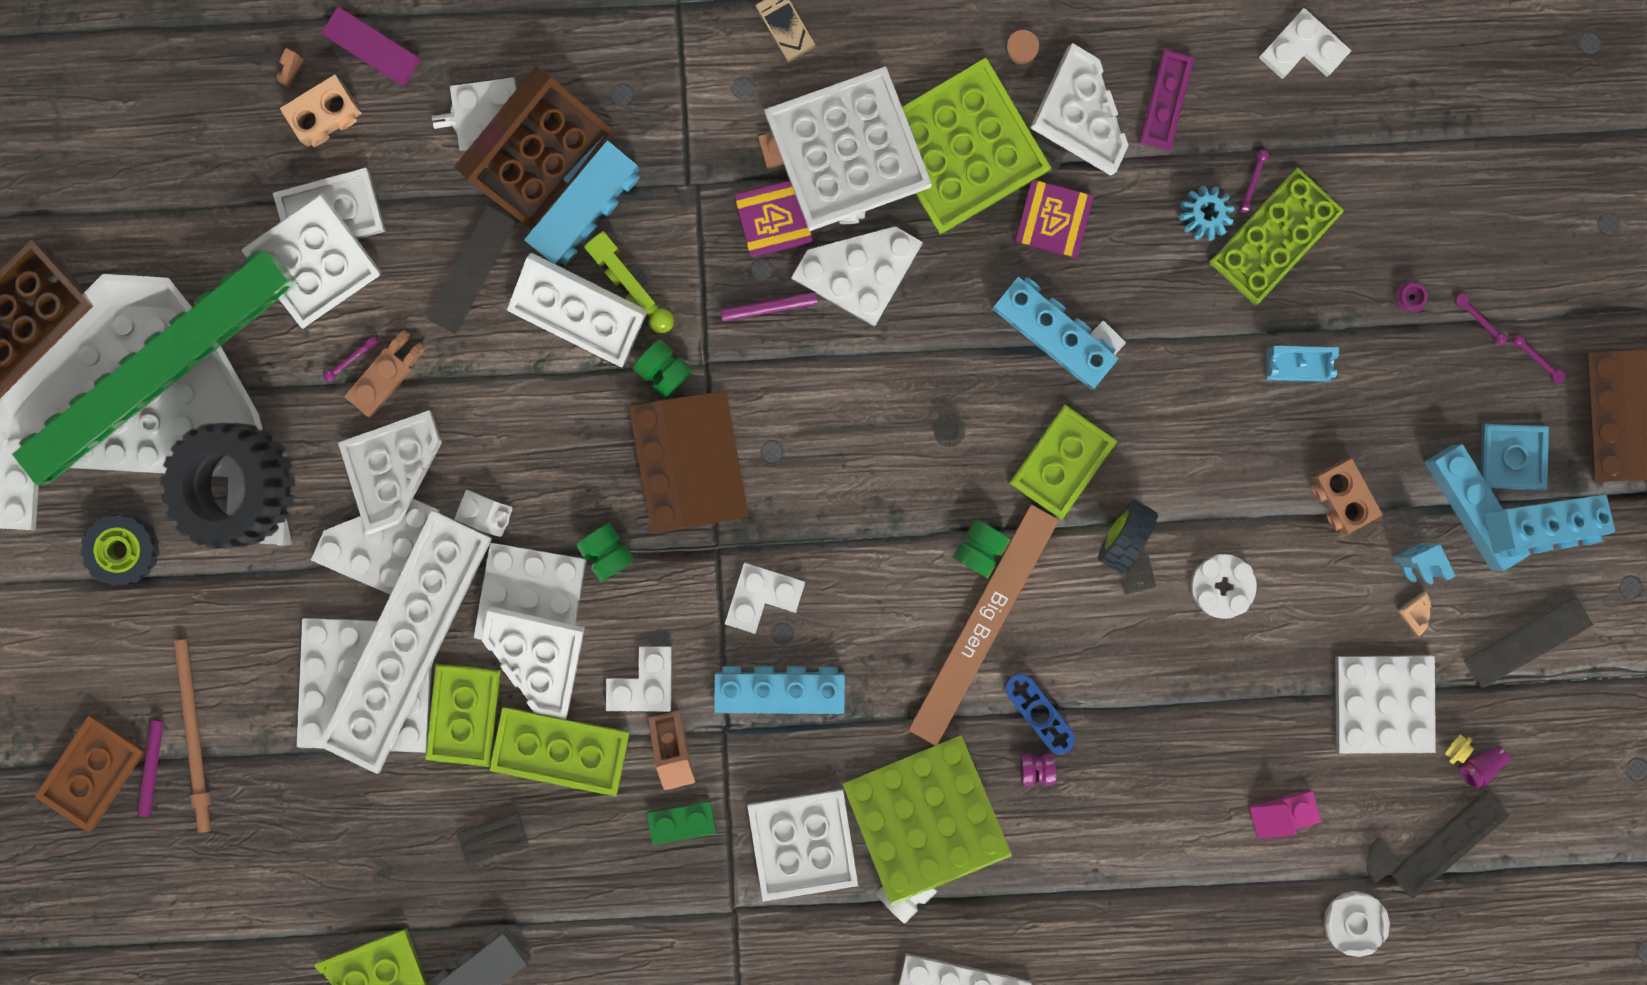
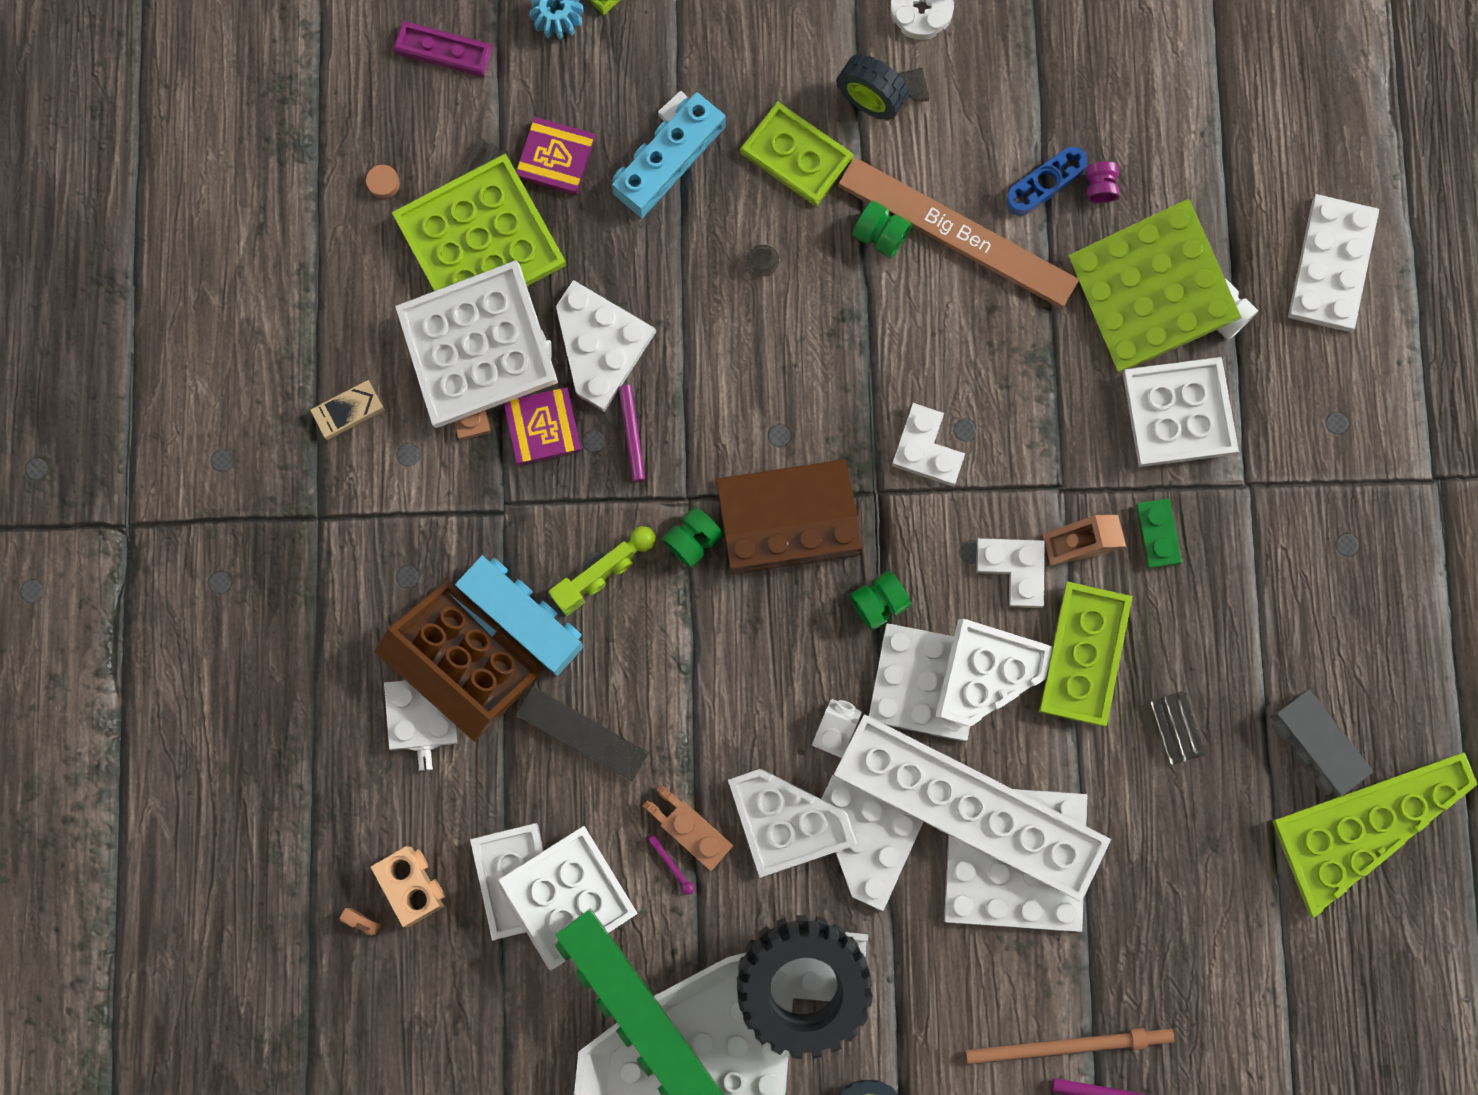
camera: 85 degrees left, 10 degrees down
(371, 46) = (342, 834): magenta tile -> none
(463, 714) = (1047, 755): lime tile -> none
(576, 310) = (628, 622): white plate -> none
(779, 691) = (1024, 430): medium azure brick -> none
(1082, 112) = (452, 125): white plate -> none

